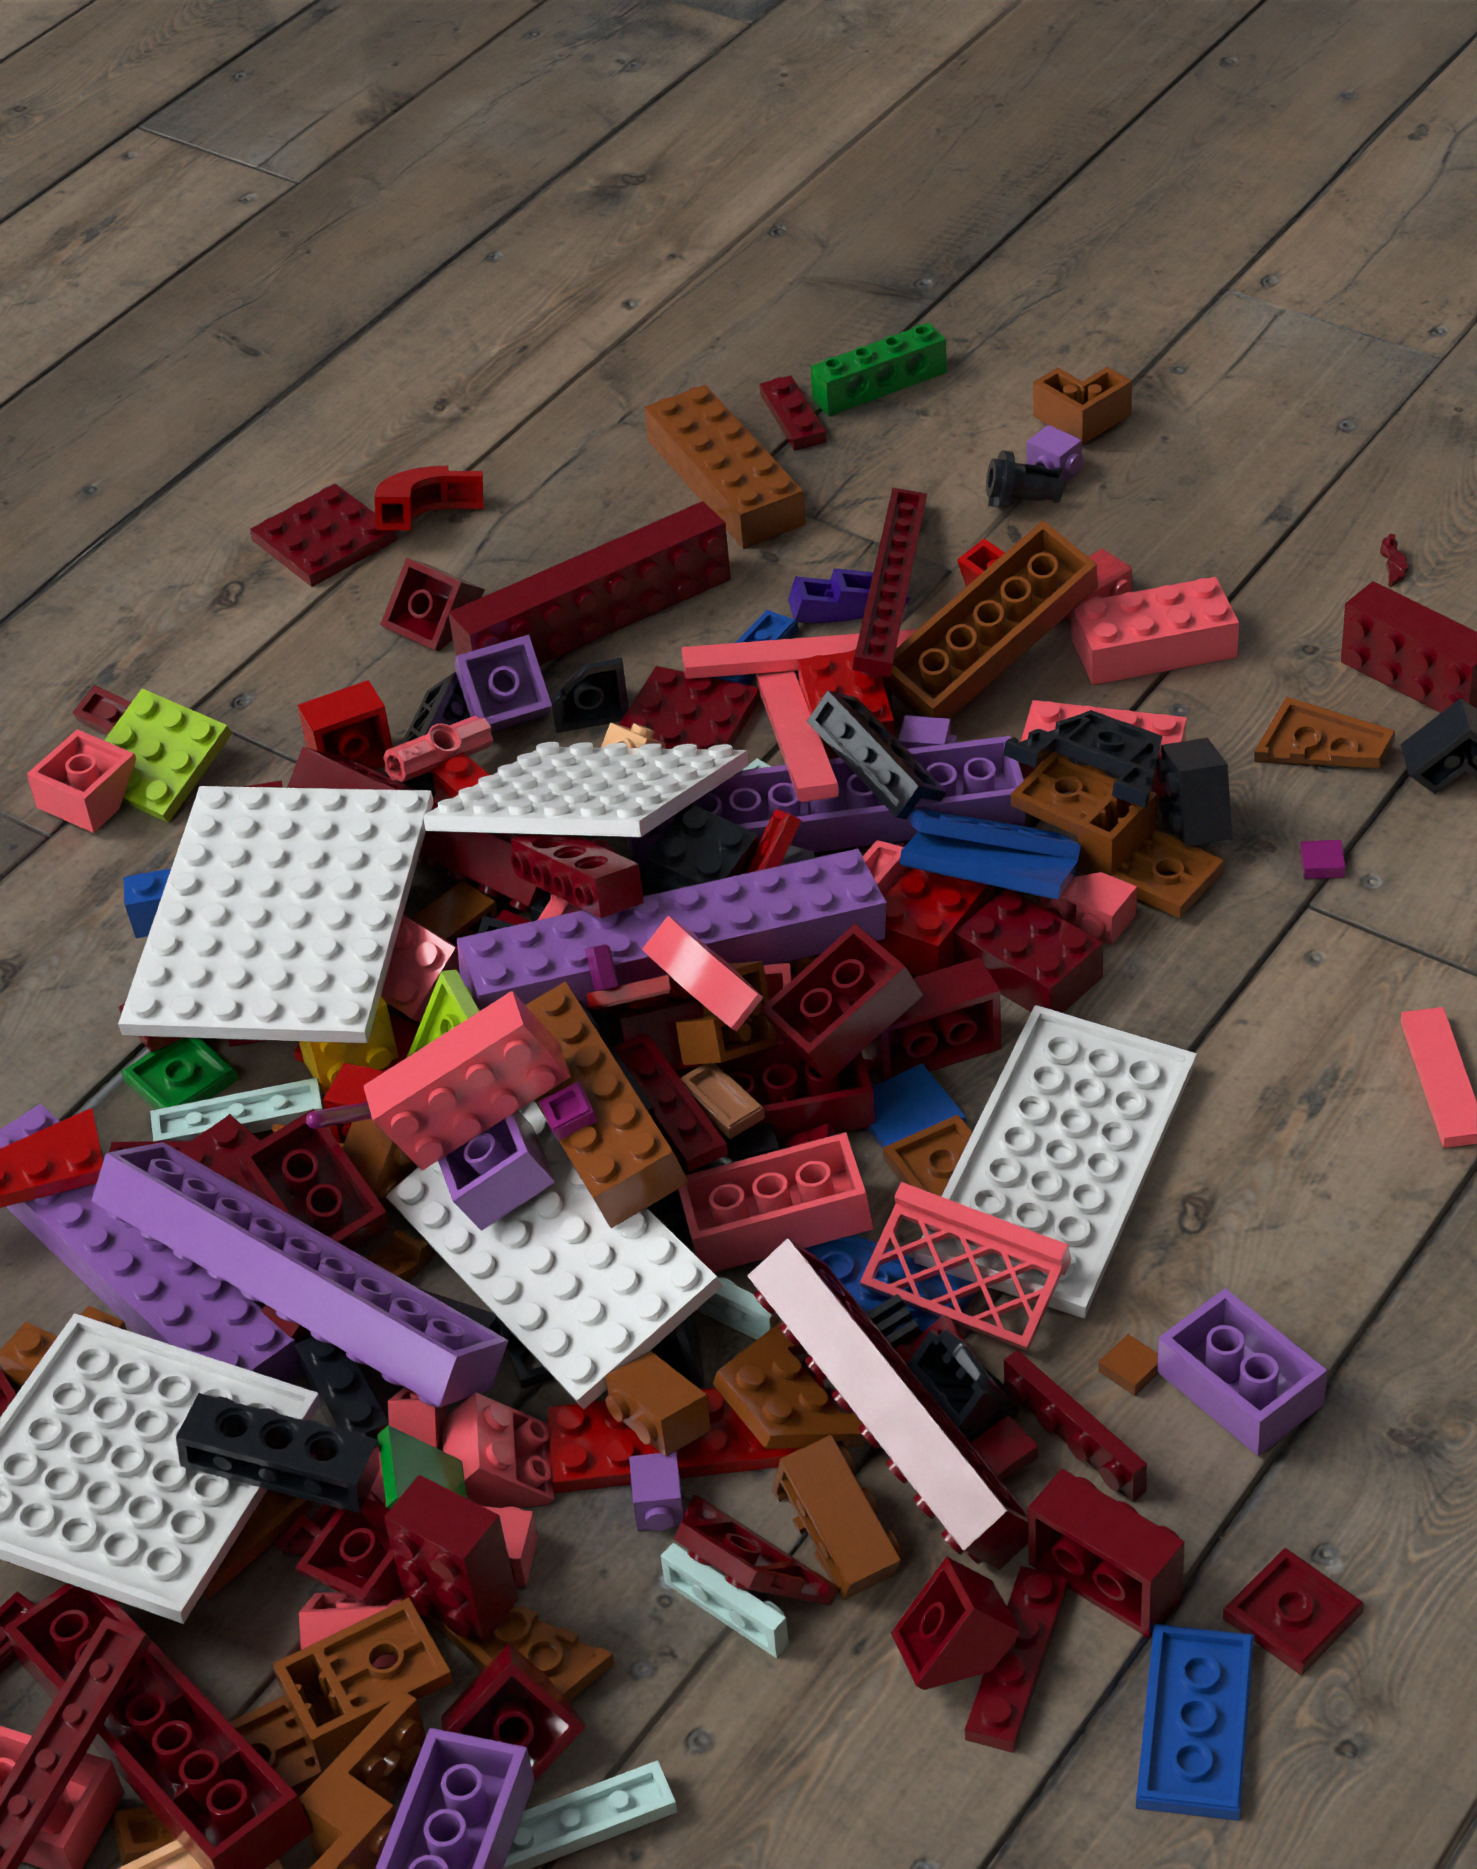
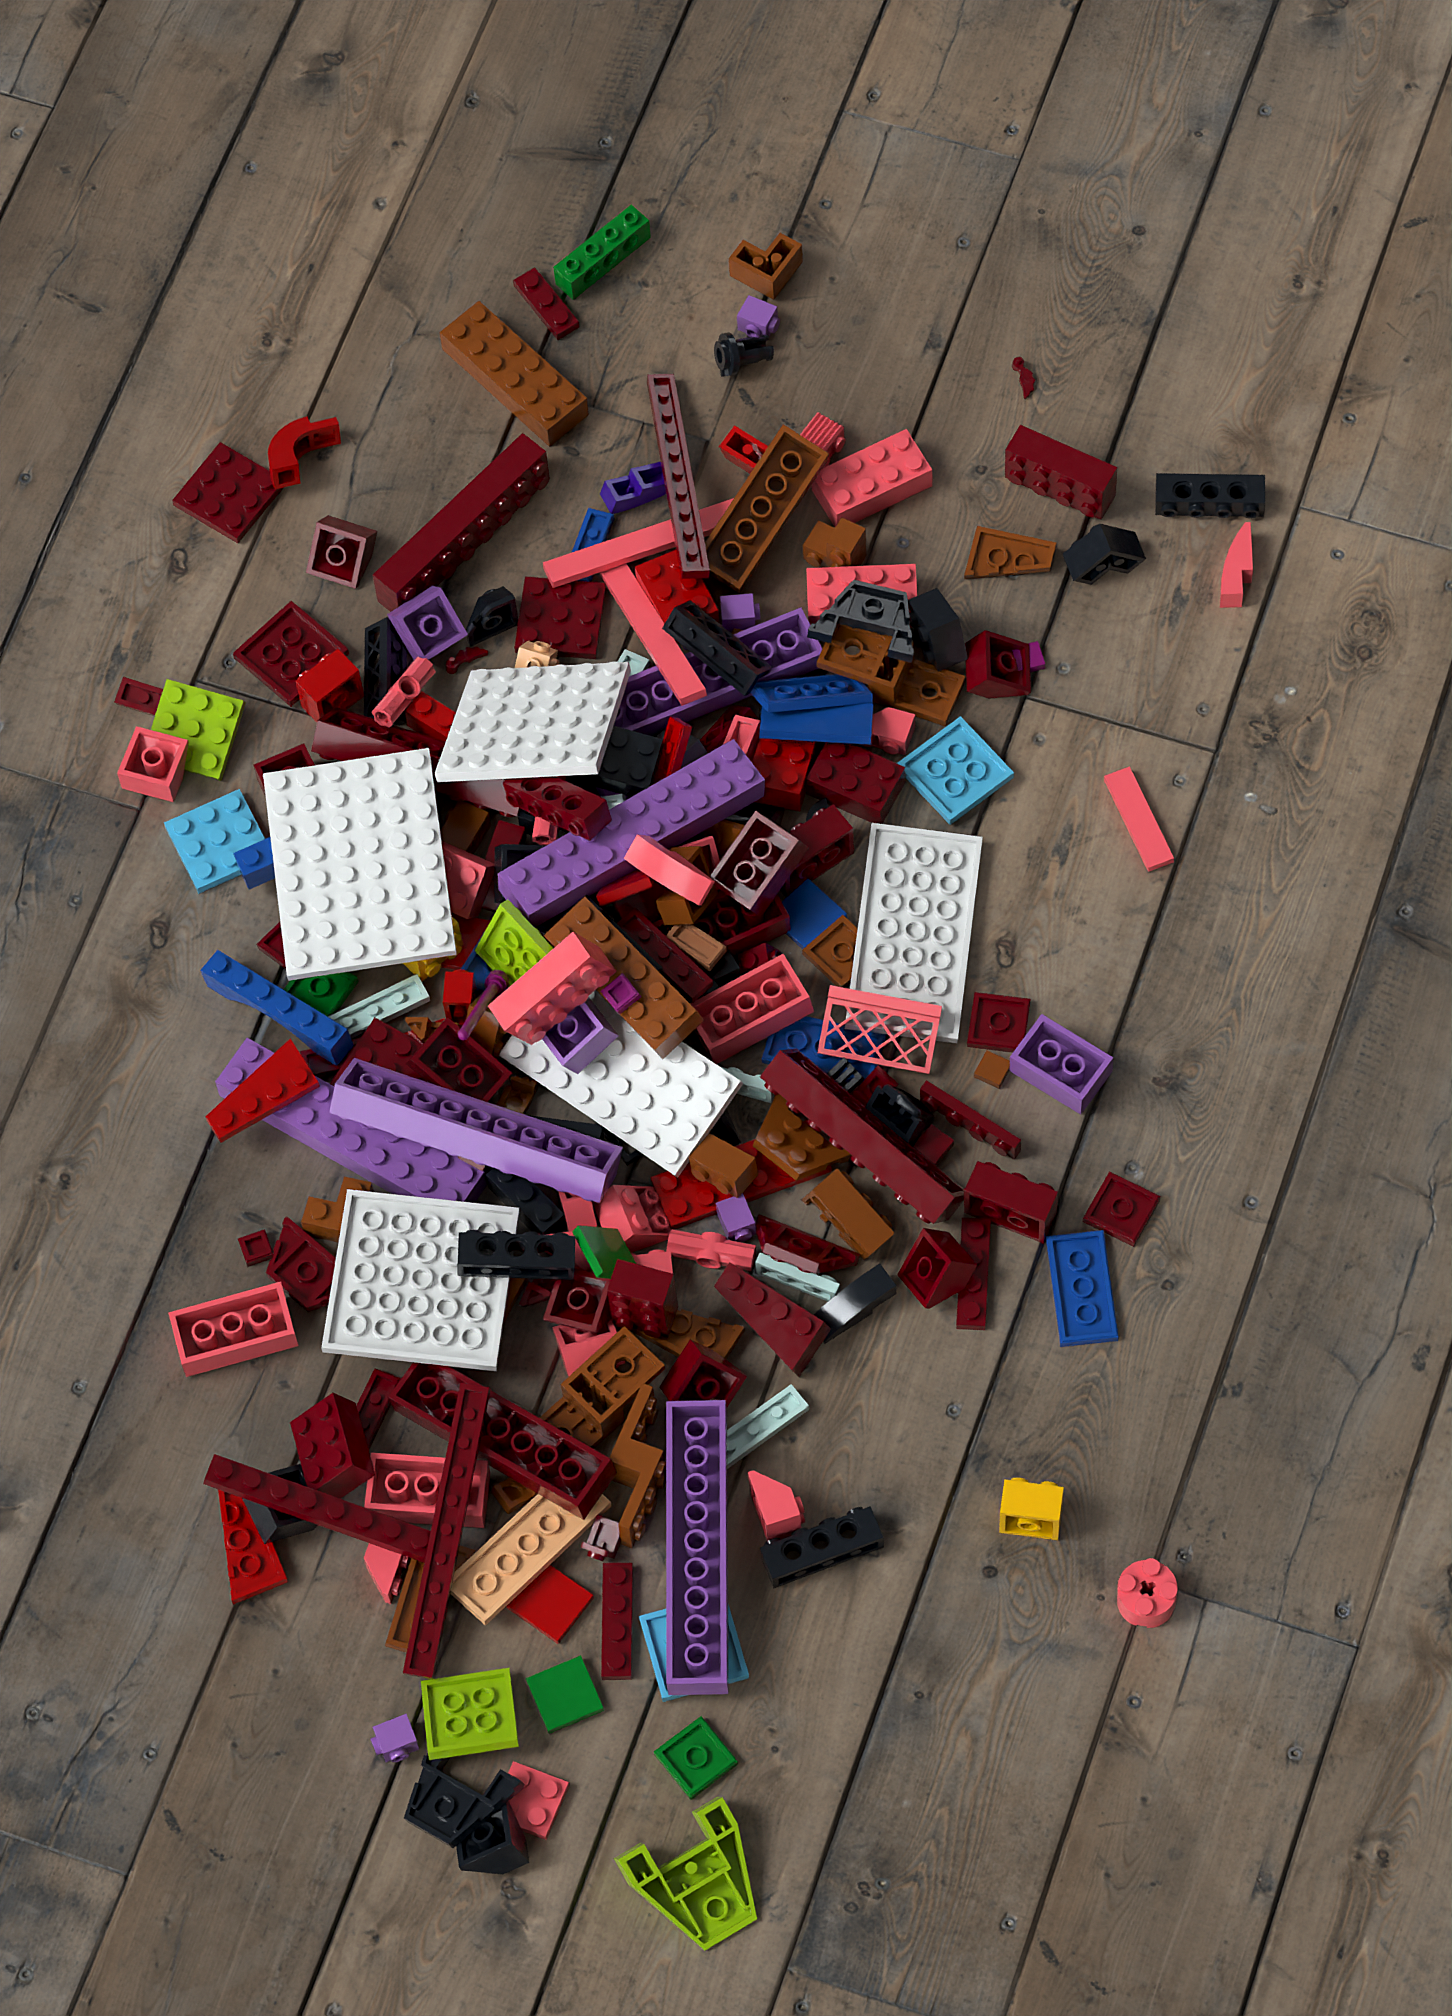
camera: 15 degrees left, 20 degrees up
(98, 880) = (211, 836): none -> medium azure plate
(129, 1100) = (306, 1023): none -> blue arch
(281, 692) = (285, 650): none -> dark red plate
(523, 744) = (466, 655): none -> dark red piece
(601, 967) = (602, 878): magenta tile -> none
(601, 1529) = (711, 1250): none -> coral piece
(671, 1658) = (777, 1320): none -> dark red wedge
(802, 1657) = (856, 1301): none -> black slope
(1090, 679) = (835, 546): none -> dark orange brick
(1153, 1298) = (998, 1022): none -> dark red tile
(1180, 970) = (955, 770): none -> medium azure plate
(1267, 855) = (993, 668): none -> dark red slope

